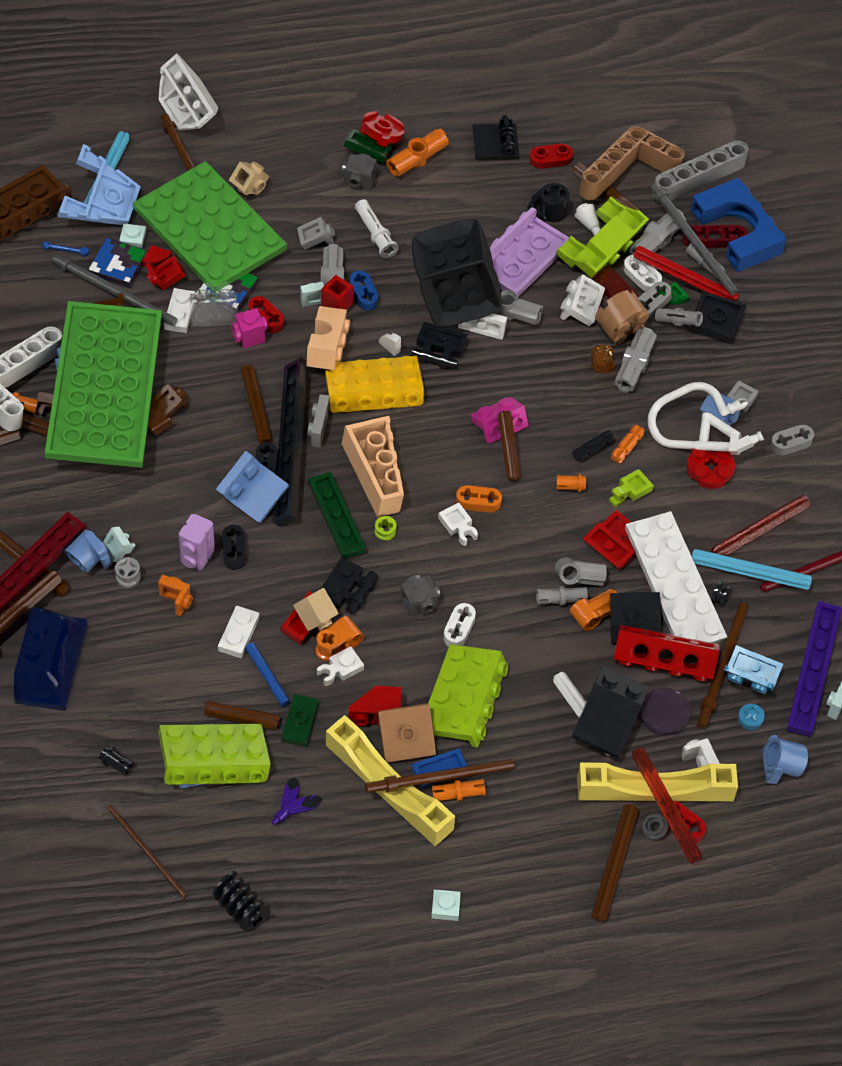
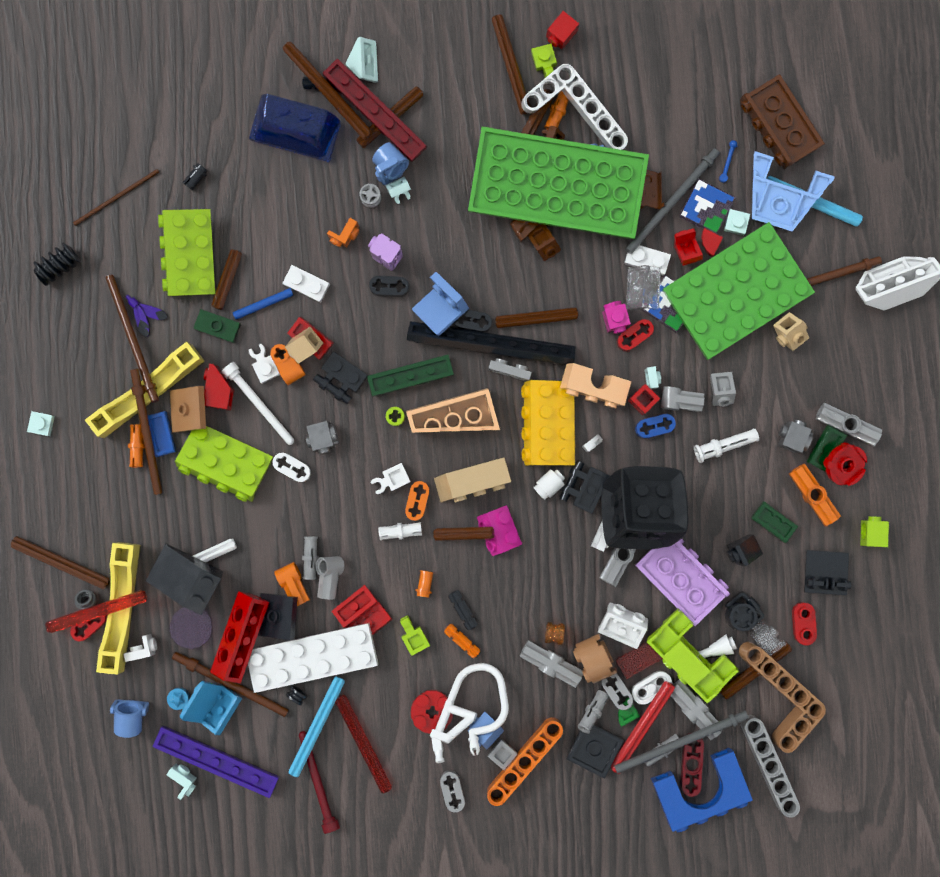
camera: 100 degrees right, 30 degrees up
(324, 805) = (149, 387): none -> reddish brown bar
(340, 128) = (860, 430): none -> light grey piece
(354, 693) = (232, 372): none -> white piece
(441, 375) = (549, 484): none -> white brick
(448, 103) = (874, 532): none -> lime brick
(451, 184) = (774, 522): none -> dark green plate
(451, 444) = (472, 480): none -> tan wedge
(485, 203) = (744, 550): none -> black slope
(516, 511) = (400, 531): none -> white pin
(572, 179) = (767, 638): none -> clear brick
(733, 367) = (523, 771): none -> orange beam

